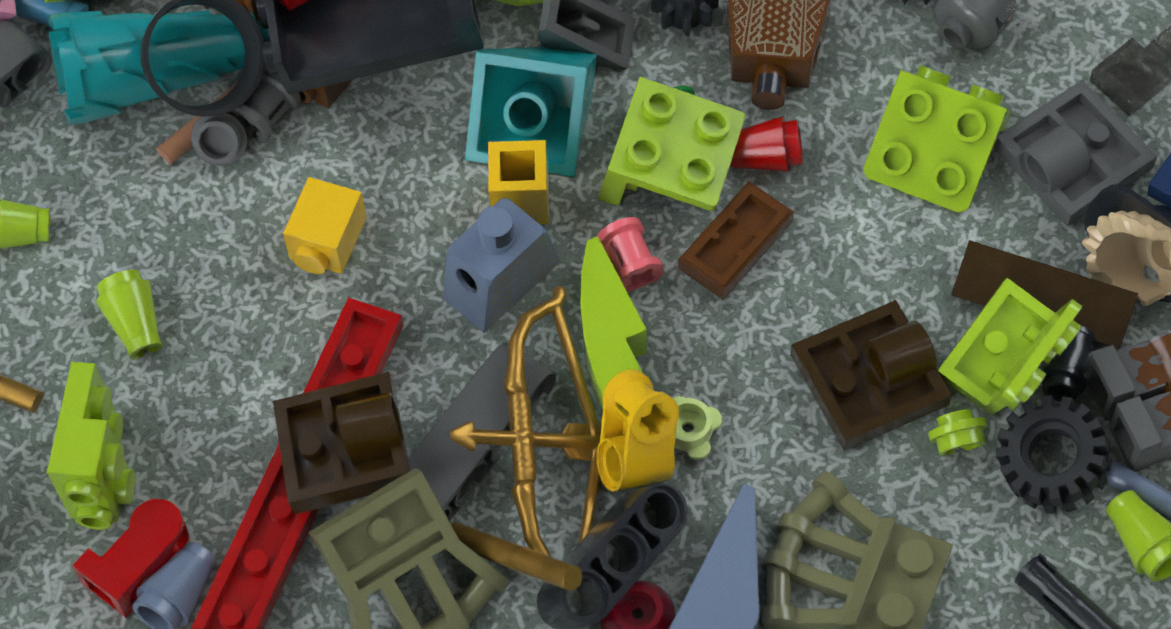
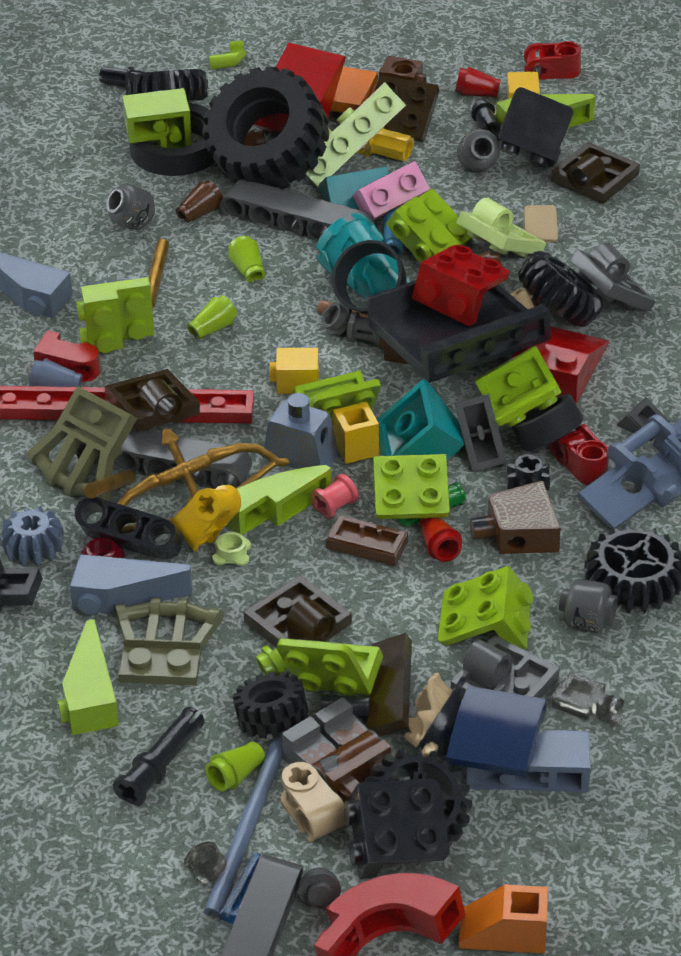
camera: 70 degrees right, 20 degrees down
(428, 191) = (340, 392): none -> lime bracket

